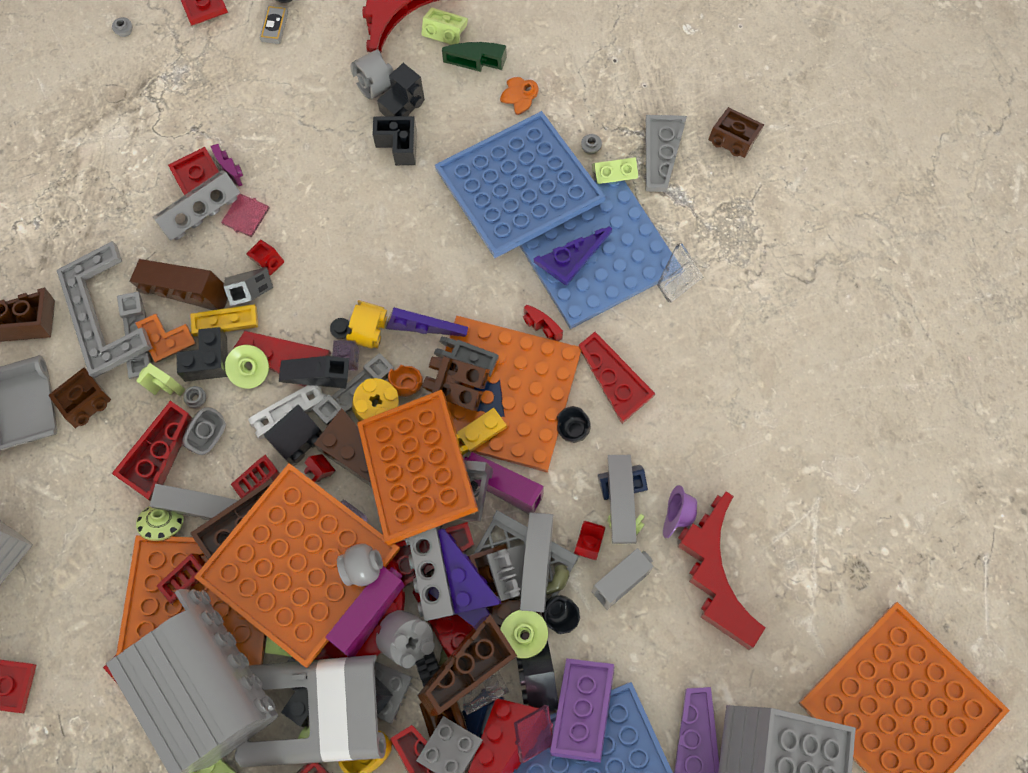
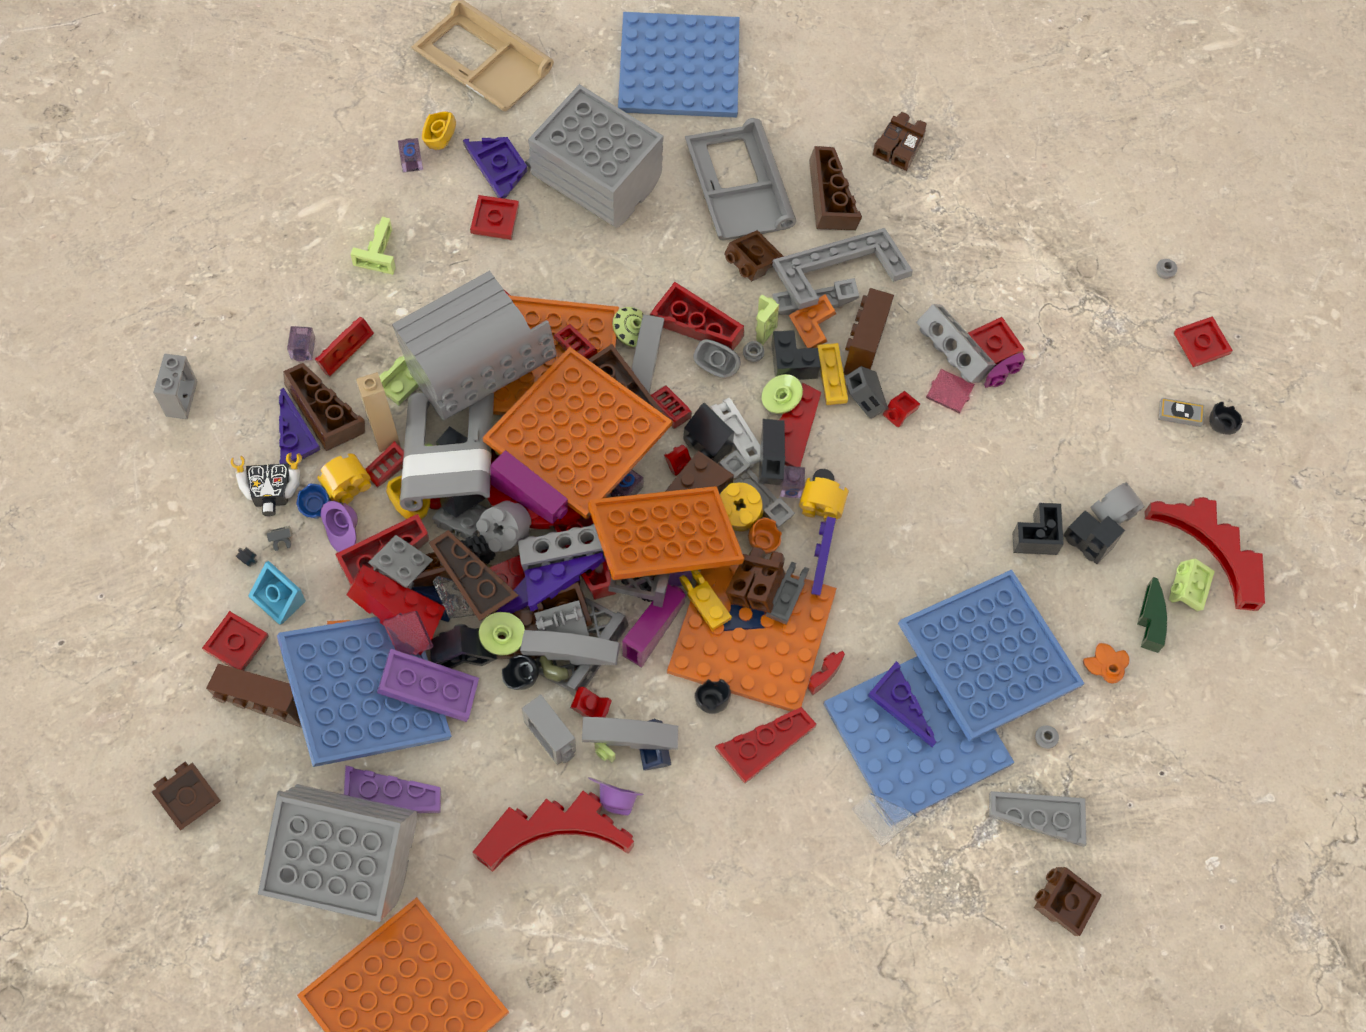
camera: 85 degrees right, 5 degrees down
(359, 565) = (567, 475): light grey piece -> none
(615, 170) = (1011, 757): yellowish green bracket -> none

